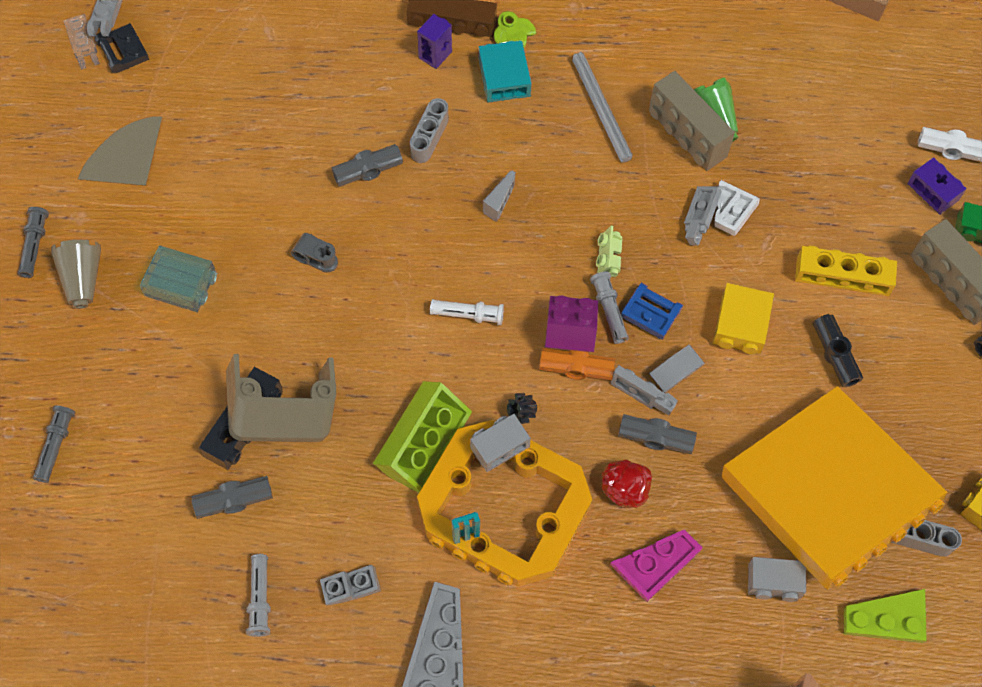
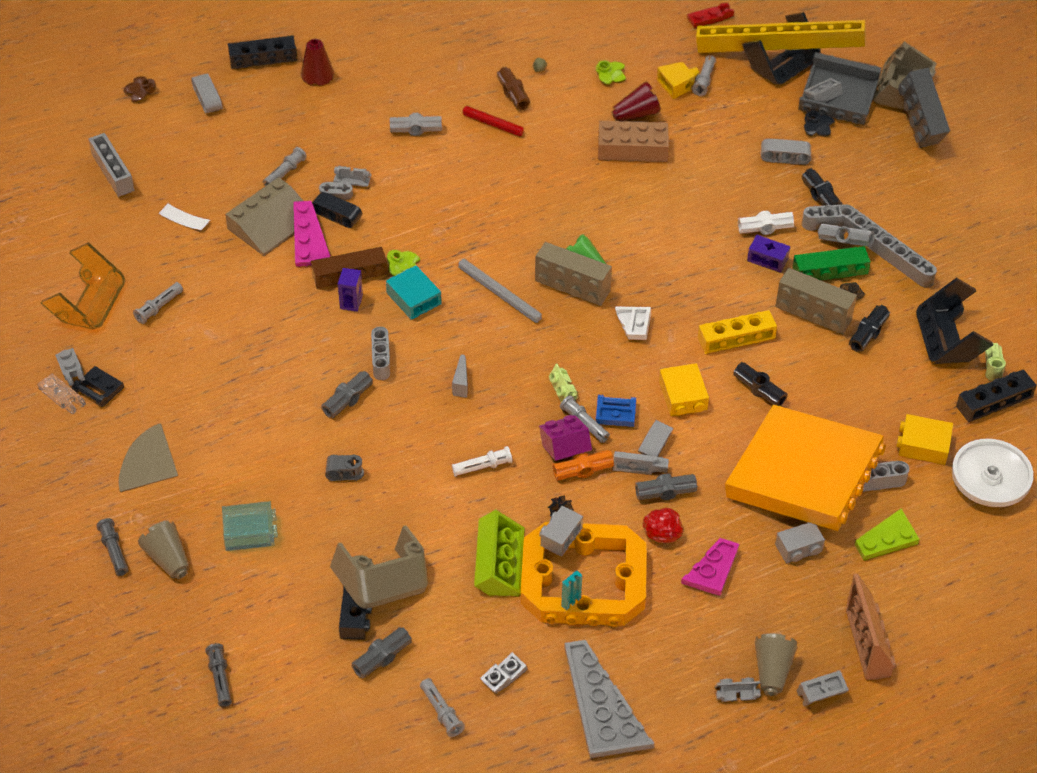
camera: 25 degrees left, 15 degrees down
(701, 213) = (614, 333): light grey hinge -> none

